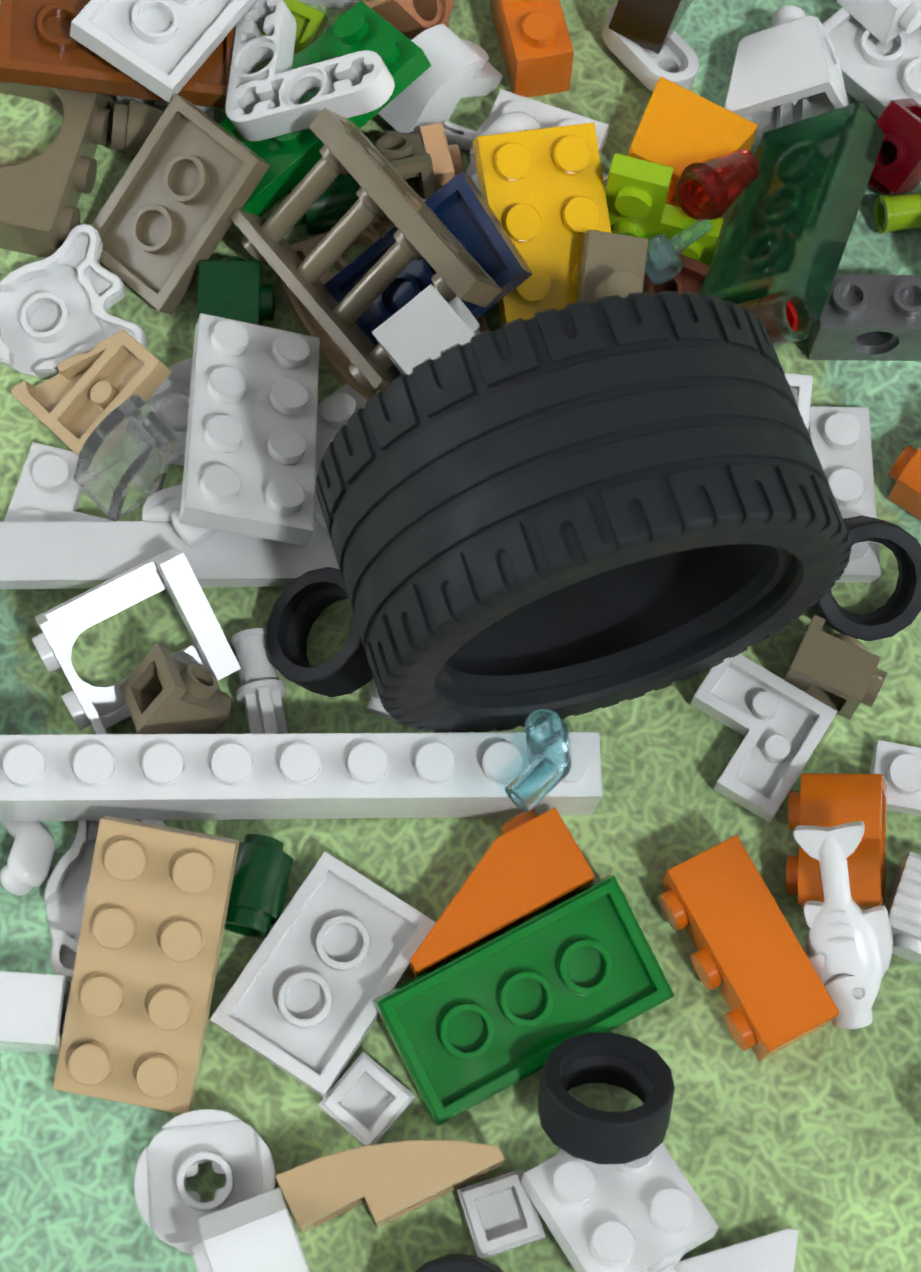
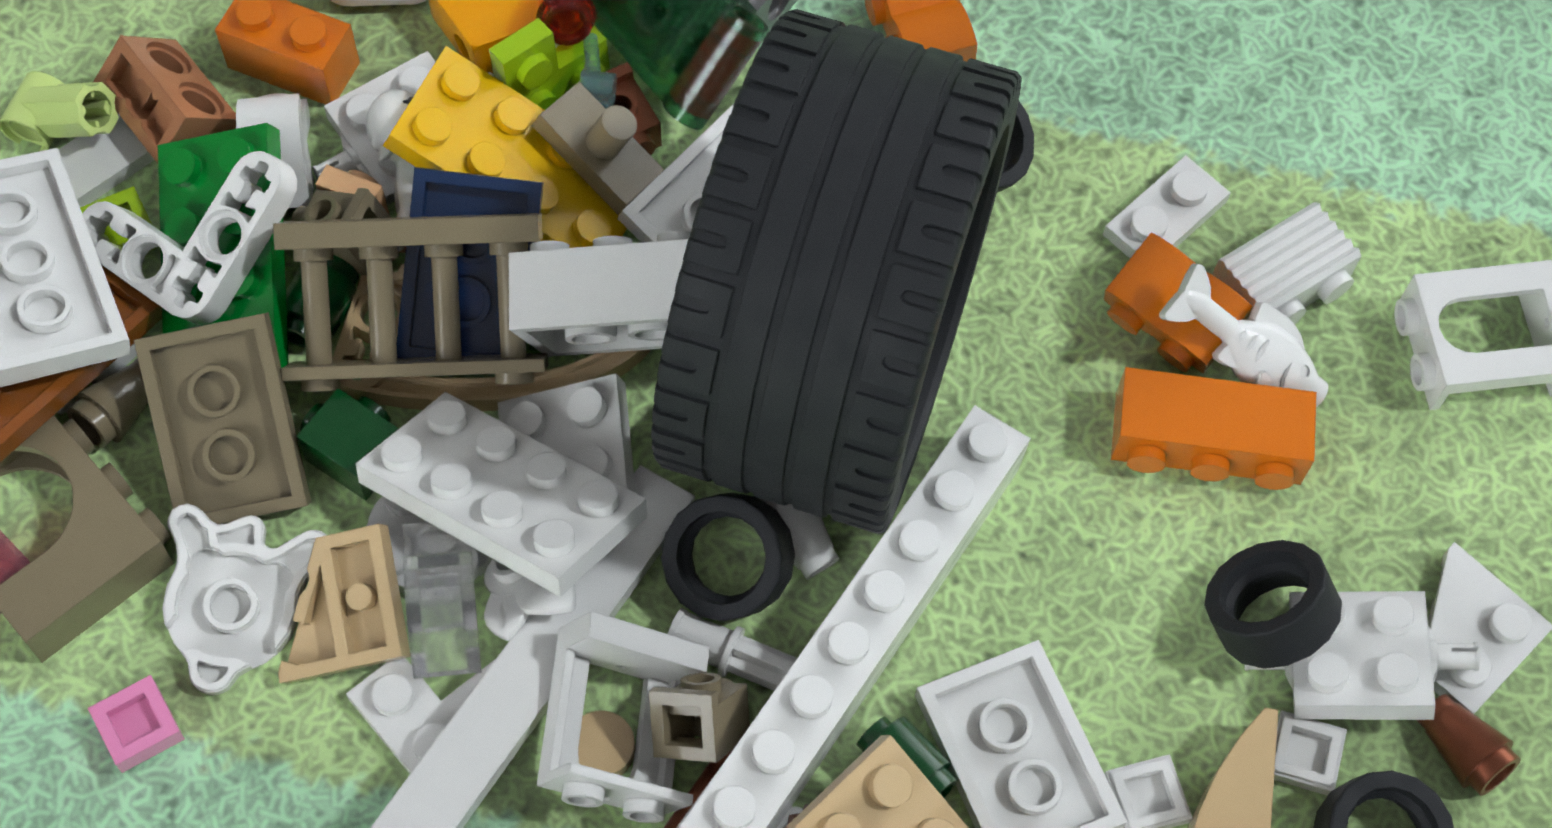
camera: 55 degrees left, 5 degrees down
(115, 647) = (606, 742): none -> tan tile
(516, 878) = (1044, 565): orange slope -> none
(519, 995) = (1144, 619): green tile -> none
(547, 759) = (983, 451): clear light blue arm -> none
(778, 728) = (1045, 285): white plate -> none
(835, 670) = (1031, 217): dark tan brick -> none

